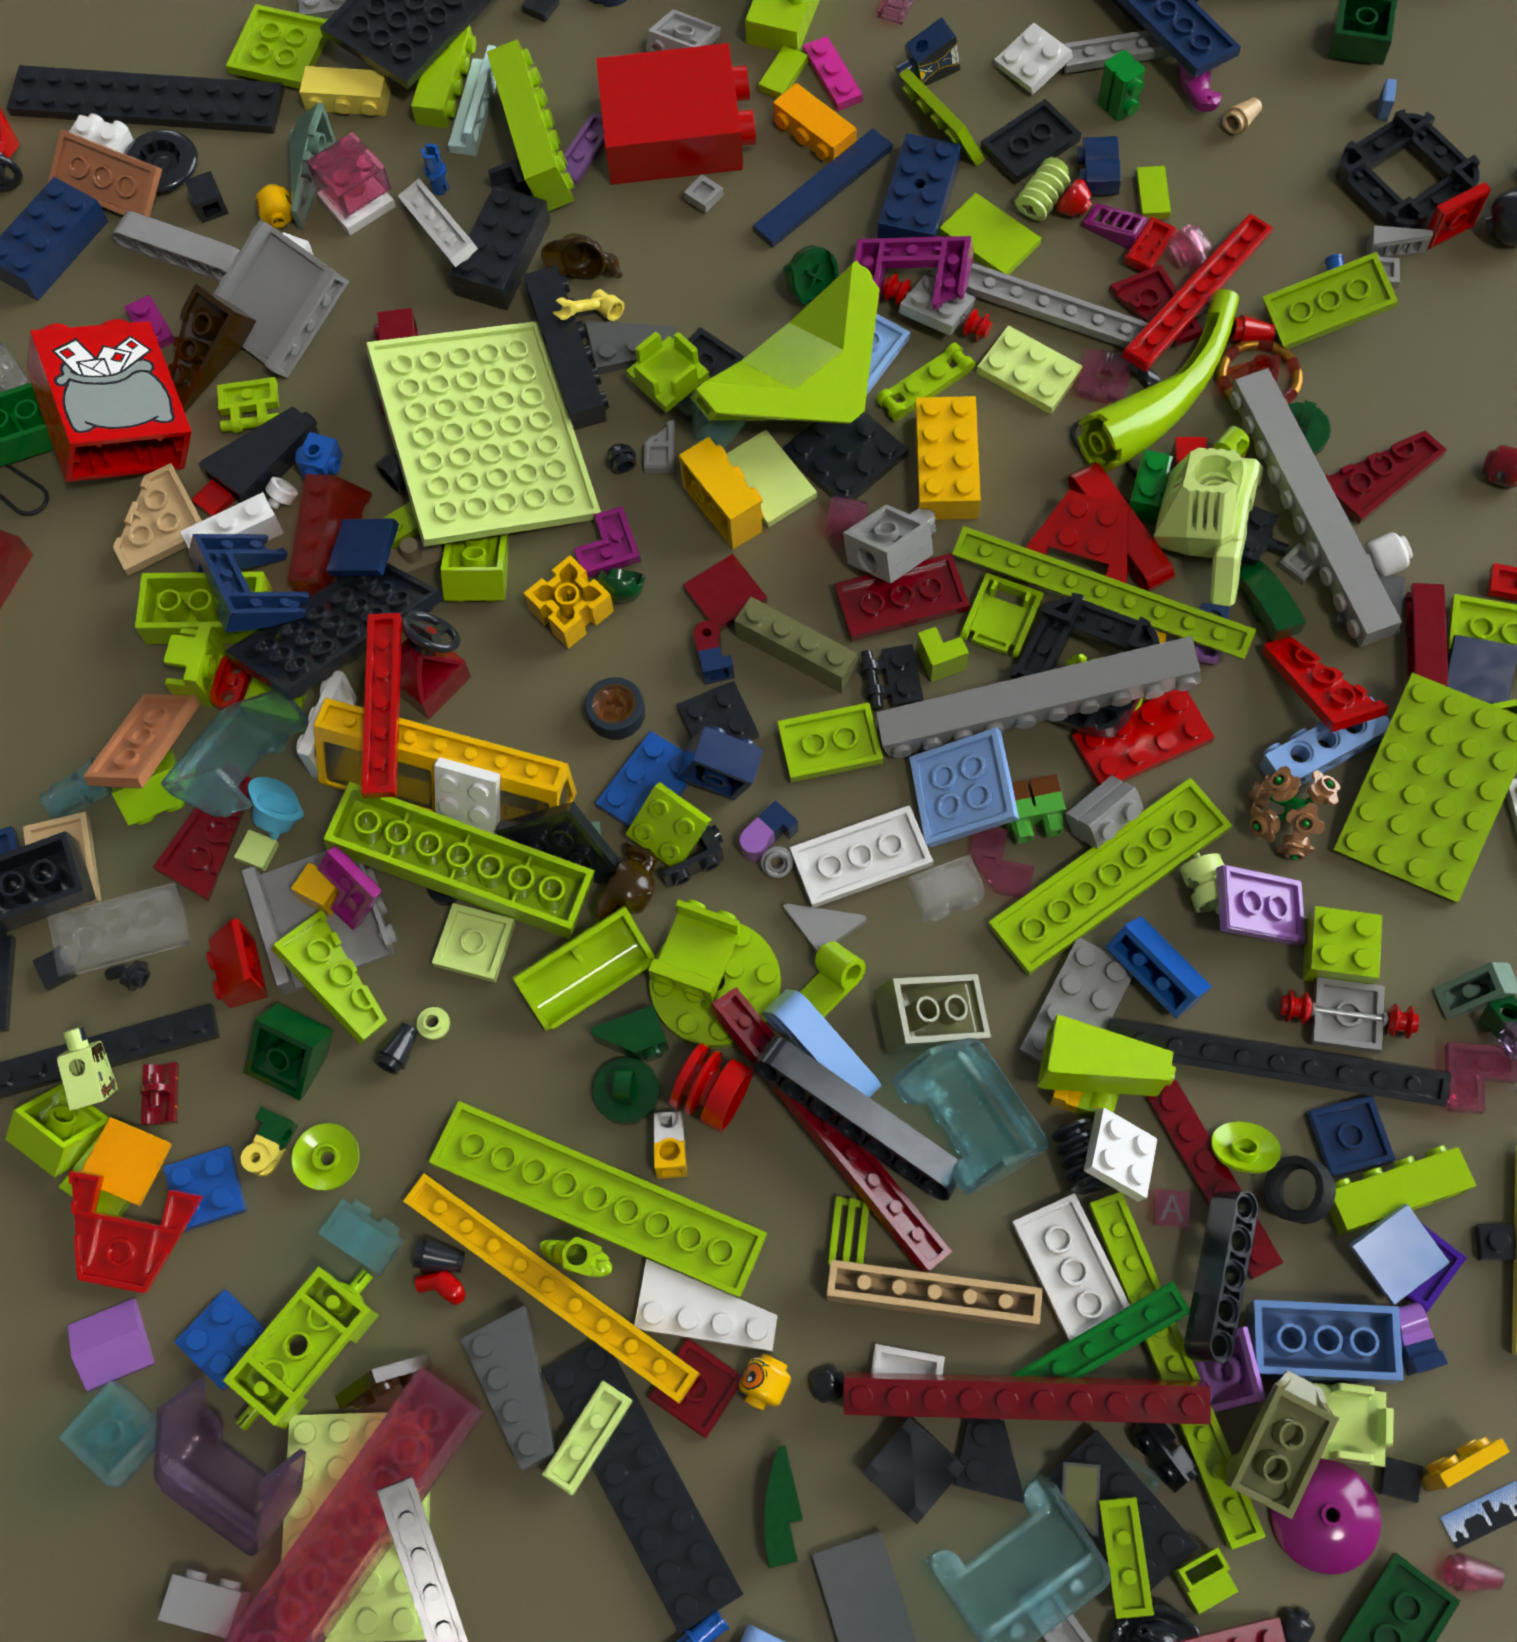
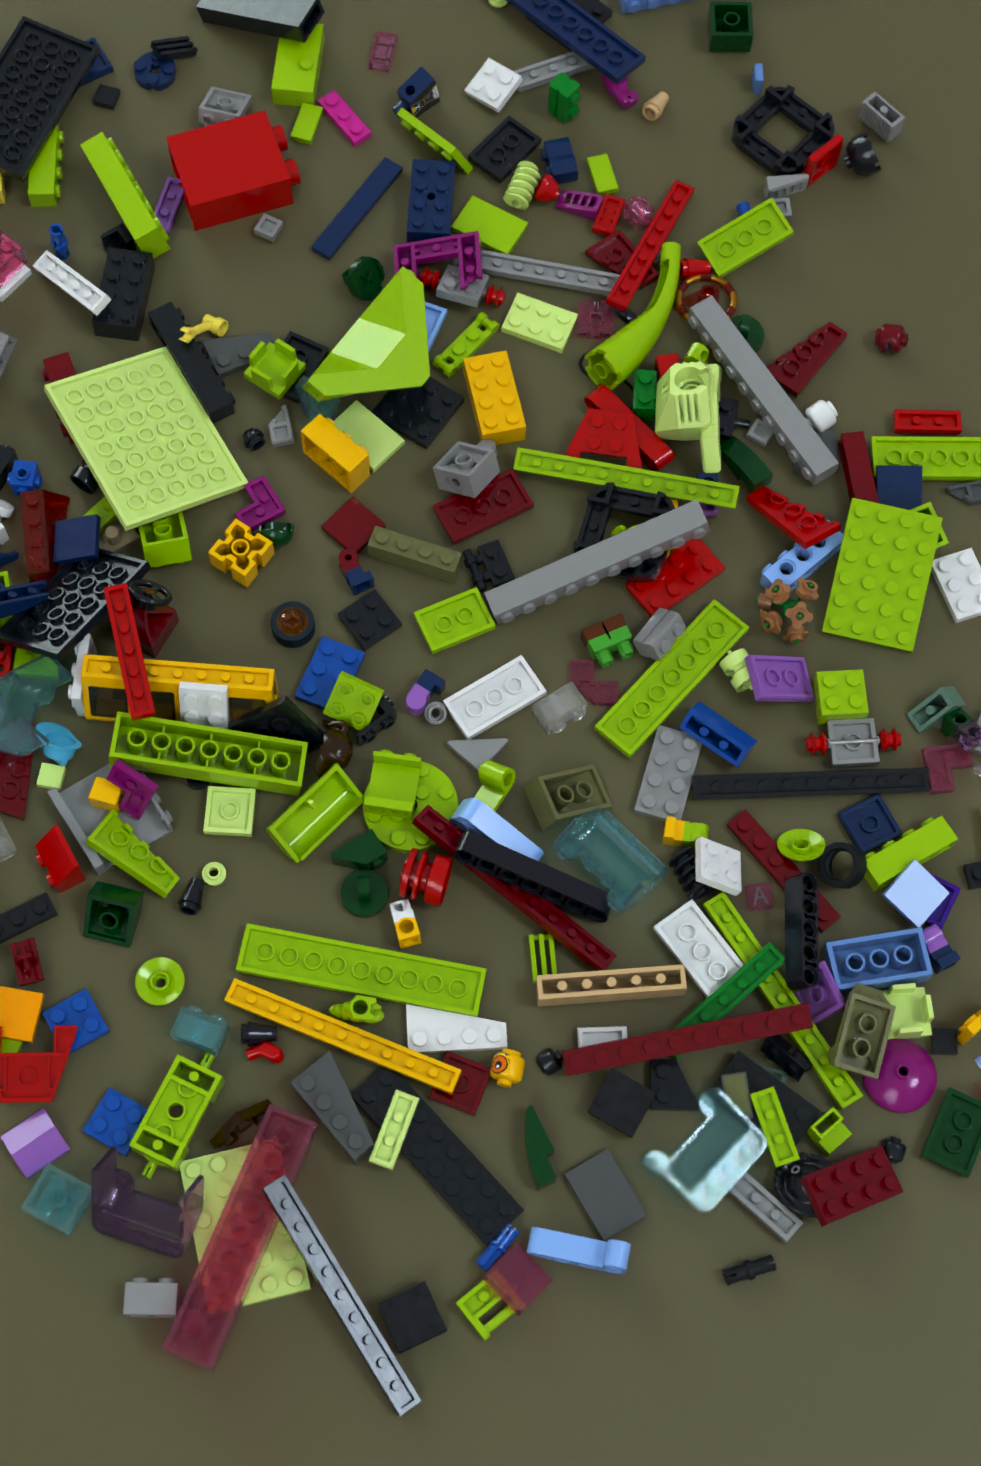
camera: 20 degrees left, 0 degrees up
(269, 1143) = (116, 980): leg -> none
(473, 107) = (74, 185): light aqua fence -> none
(580, 257) = (187, 292): dark brown hair -> none
(720, 762) = (380, 649): dark blue brick -> none
(813, 123) = (339, 160): light orange brick -> none
(844, 514) = (429, 454): clear pink piece -> none
(941, 658) = (520, 545): lime piece -> none
(963, 787) = (557, 635): light blue plate -> none
(998, 622) = (555, 512): lime container -> none
(1101, 1061) = (692, 805): lime slope -> none

